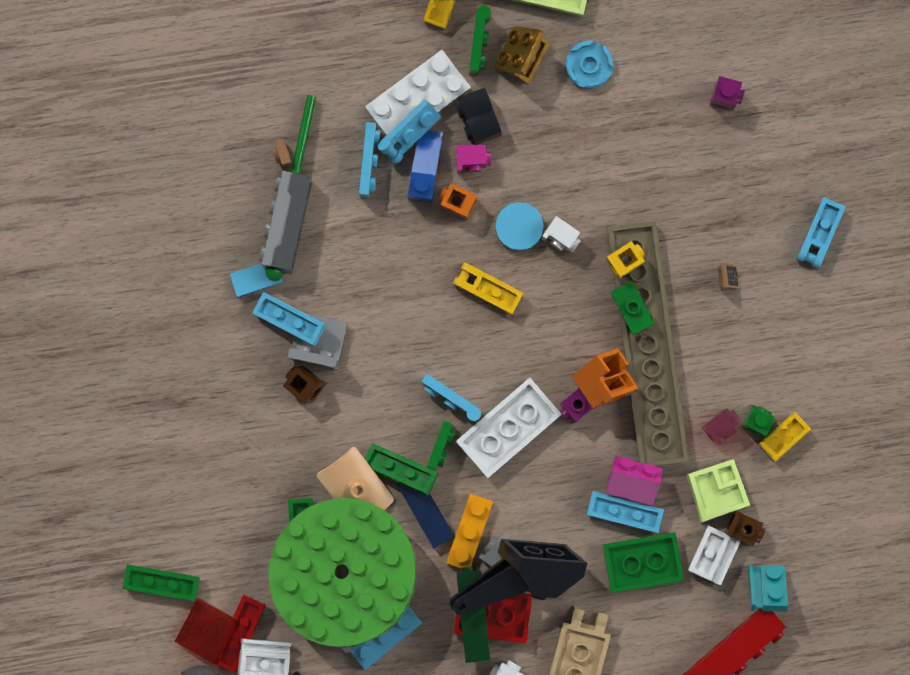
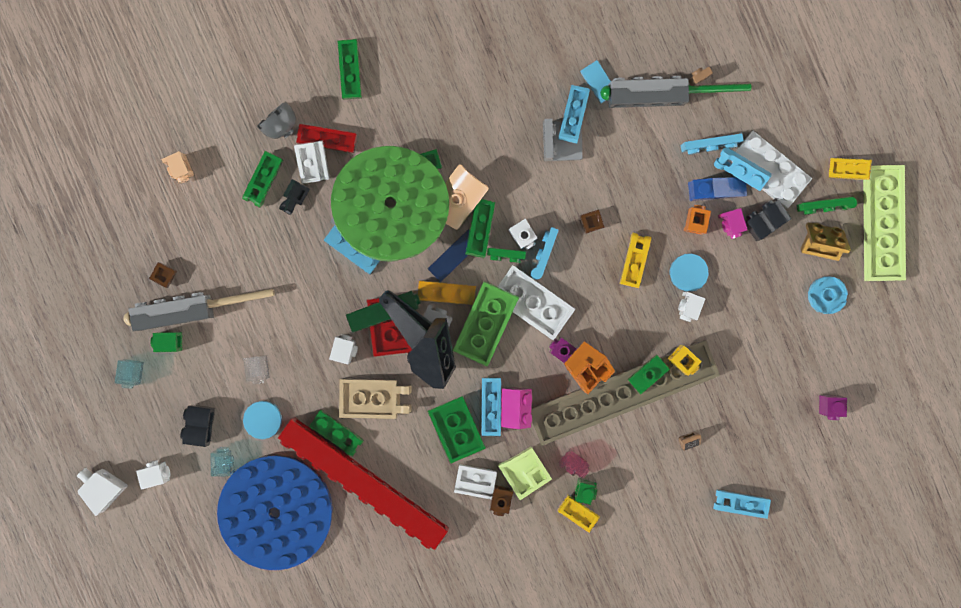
camera: 80 degrees right, 5 degrees up
(207, 631) = (321, 113): clear red tile -> none
(294, 384) = (520, 139): reddish brown brick -> none
(422, 418) = (523, 234): none -> white brick
(426, 329) = (592, 221): none -> reddish brown plate
(520, 492) = (486, 323): none -> bright green plate
(768, 588) = (460, 529): teal plate -> none

